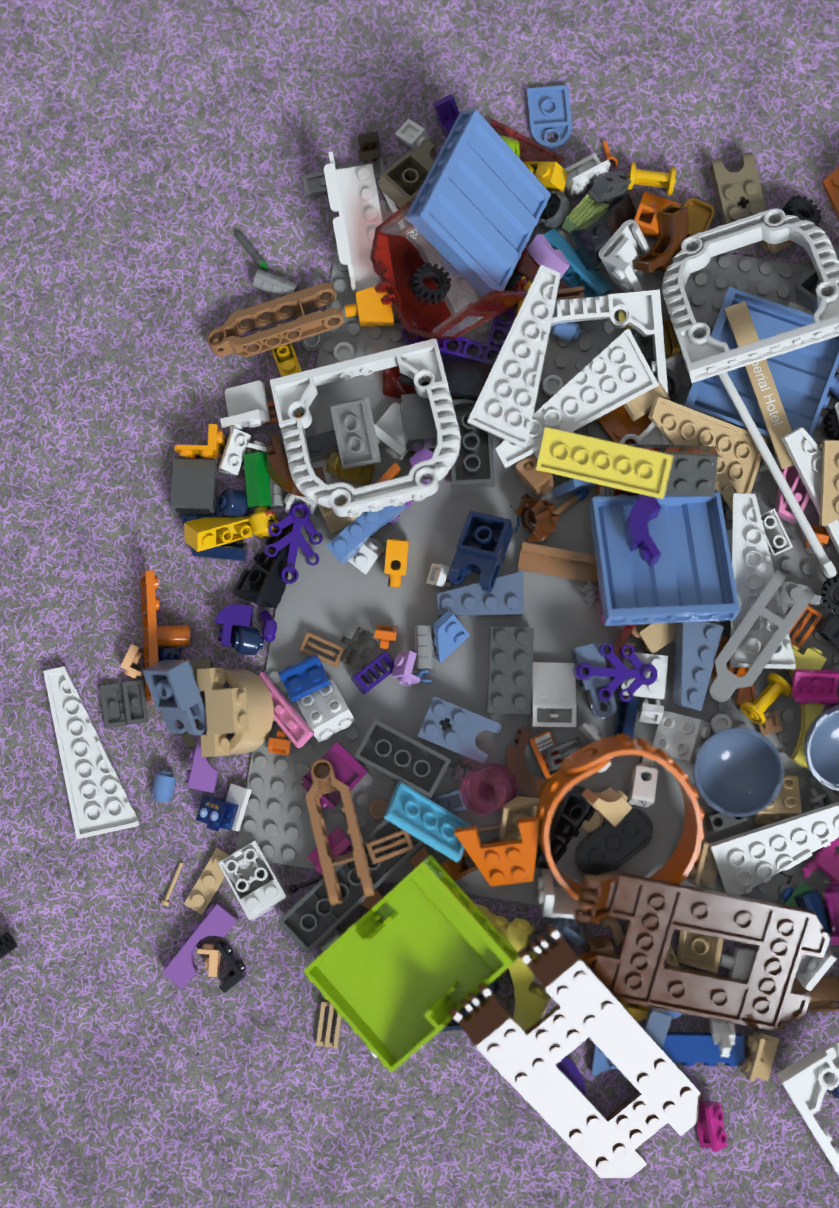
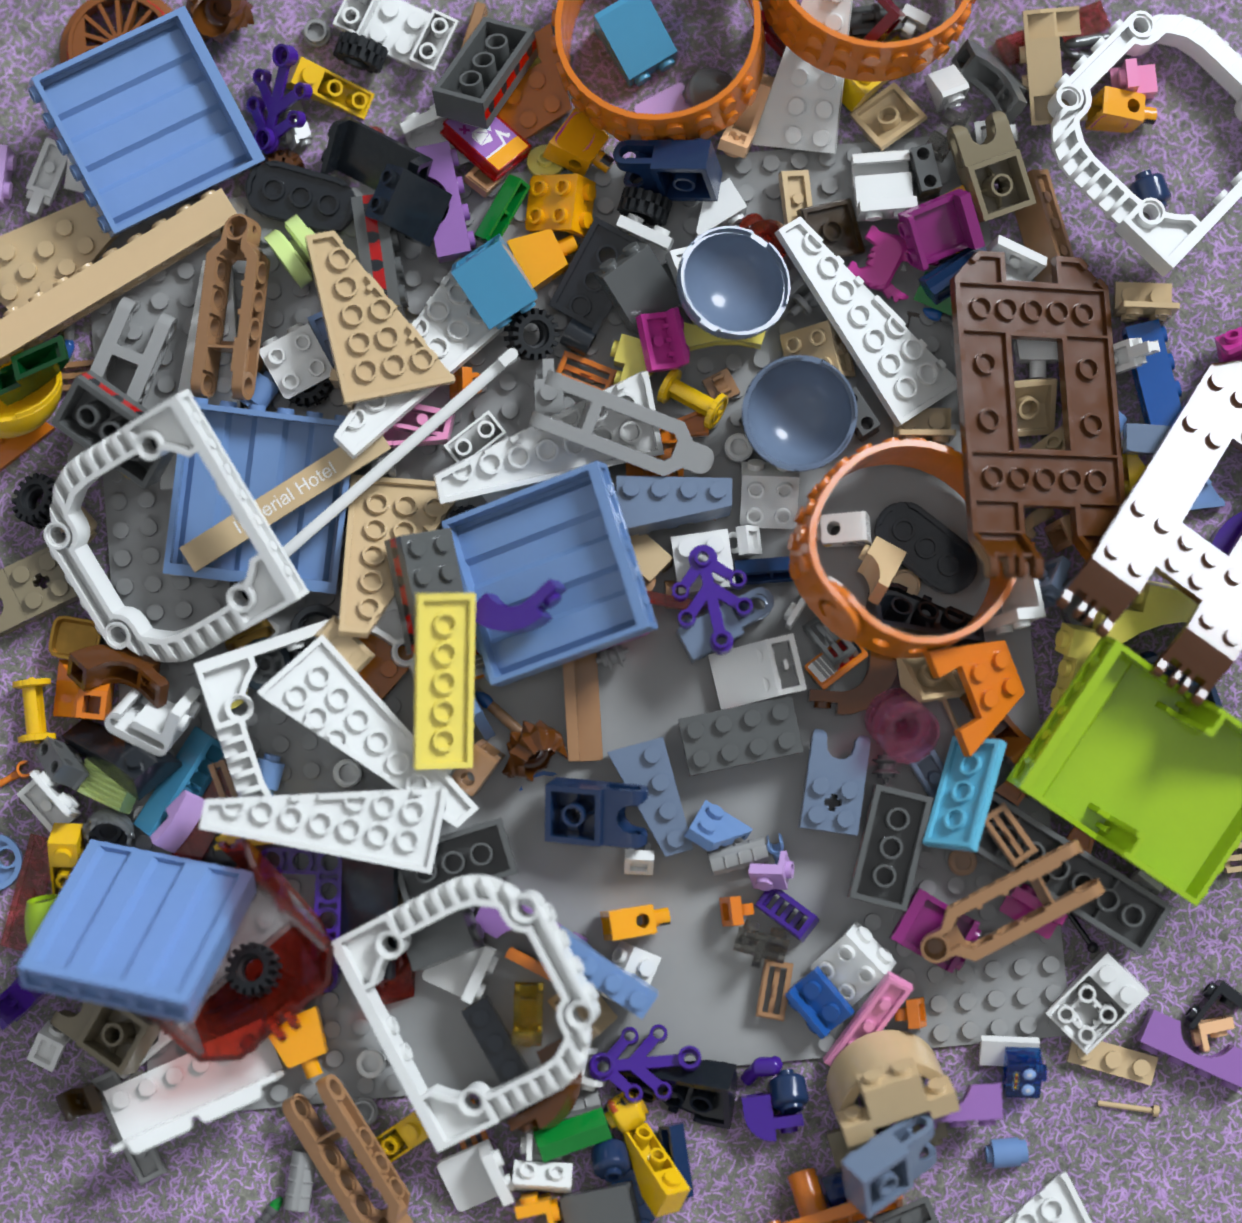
camera: 105 degrees left, 0 degrees up
(355, 433) = (483, 1018): light grey tile -> none

